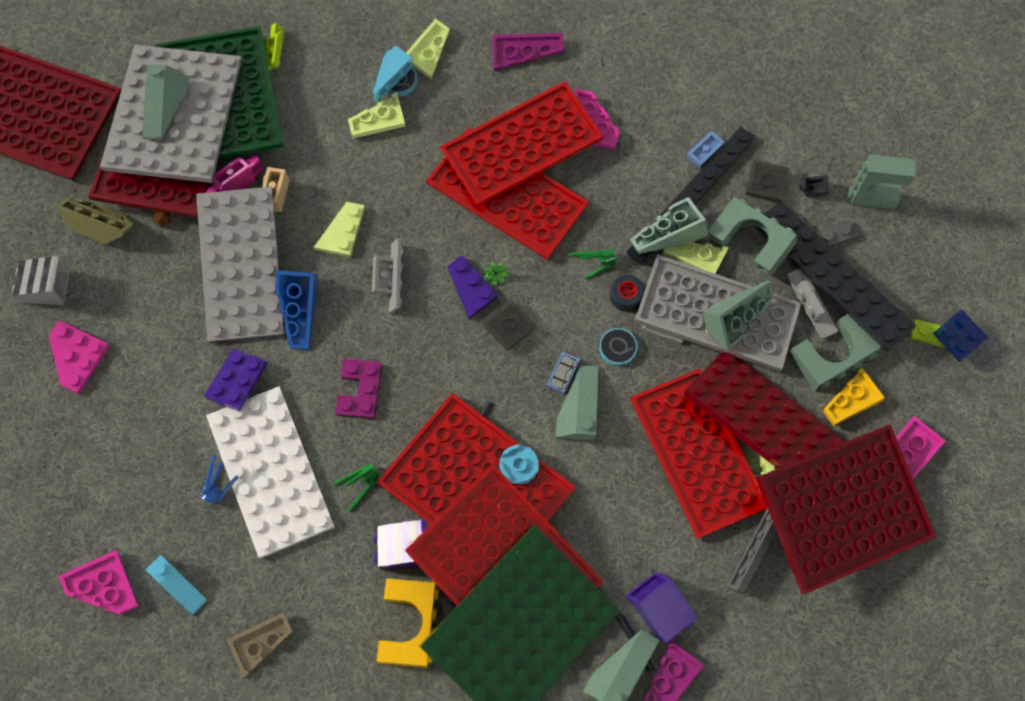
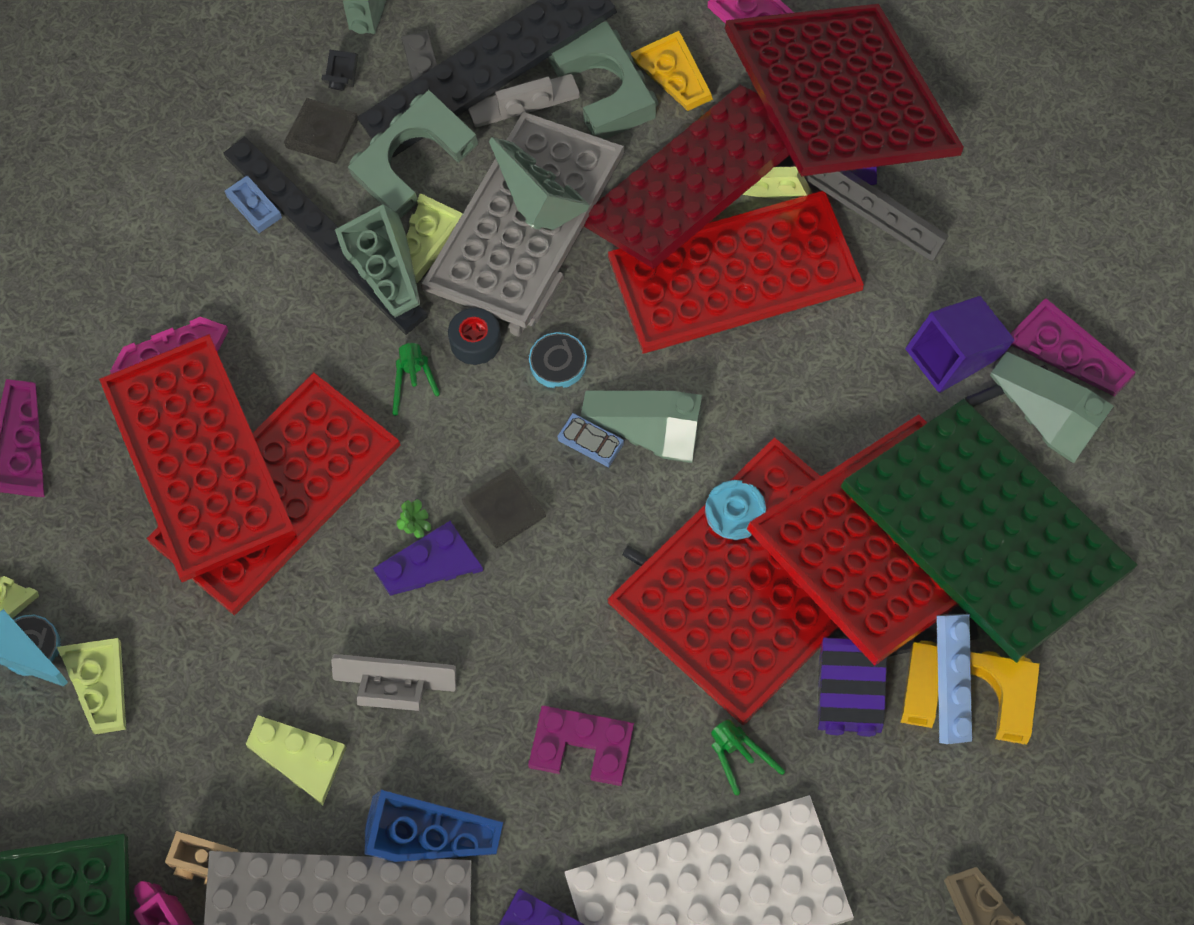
camera: 80 degrees left, 5 degrees down
(410, 608) = (954, 678): none -> light blue plate

